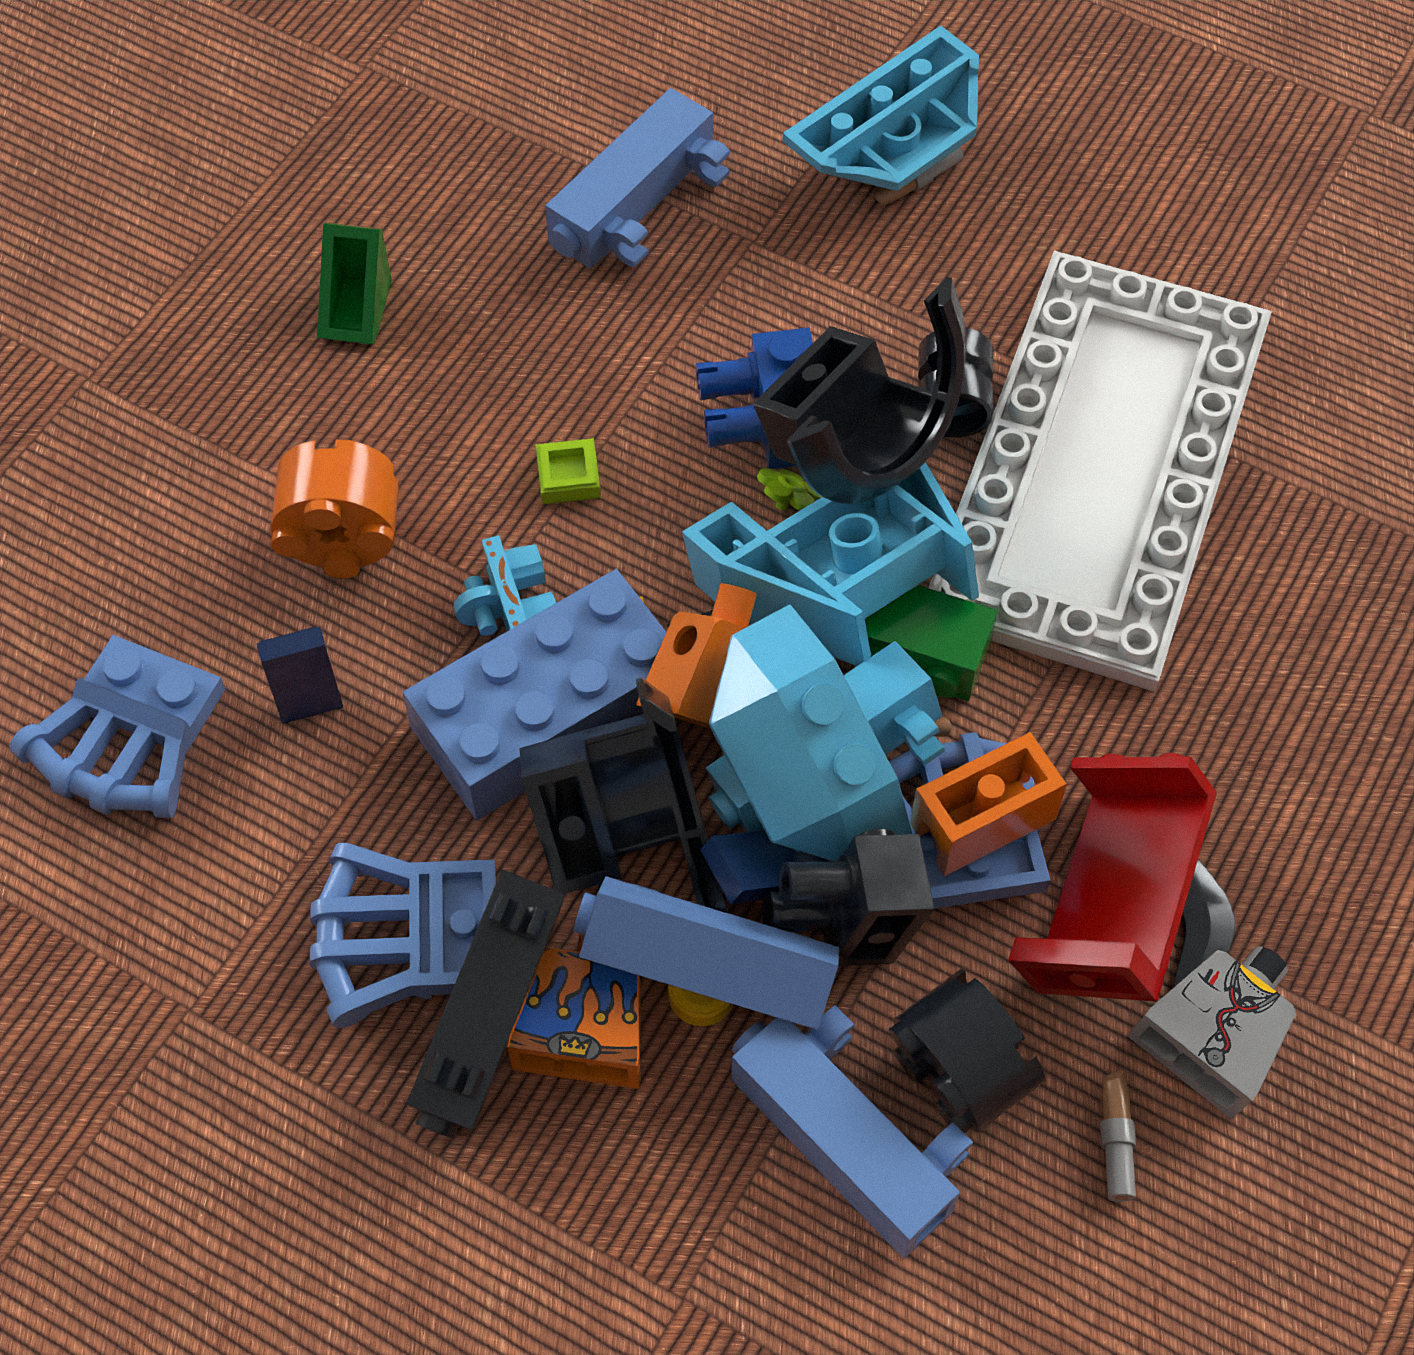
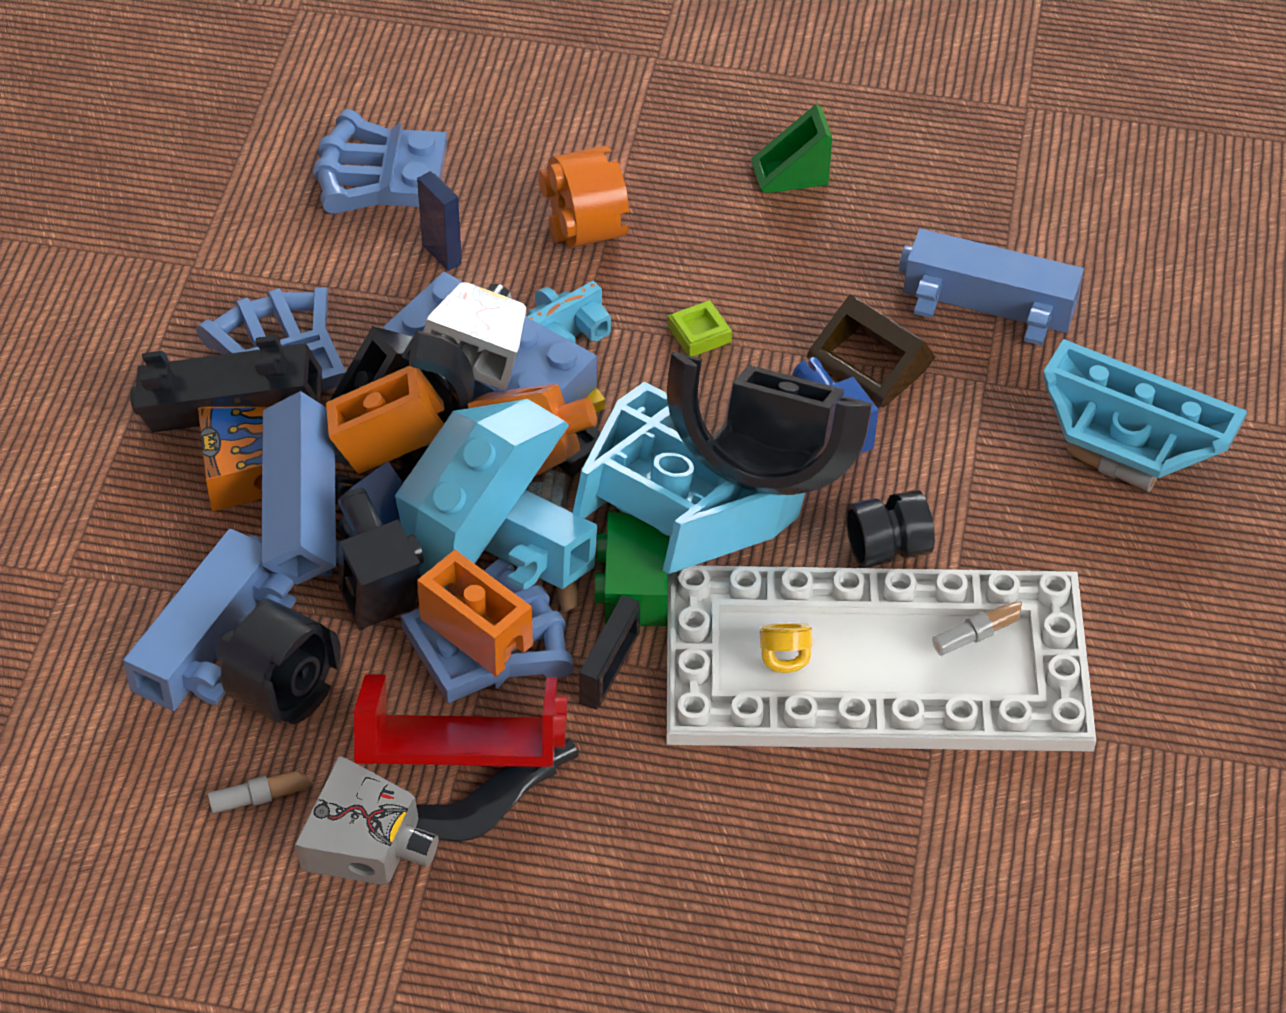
camera: 70 degrees right, 10 degrees down
(578, 664) = (484, 326): none -> torso
(657, 812) = (385, 419): none -> orange brick
(708, 279) = (855, 316): none -> dark brown tile
(1036, 699) = (609, 652): none -> black tile
(1089, 522) = (786, 638): none -> yellow tile
(1111, 353) = (977, 628): none -> light grey piece

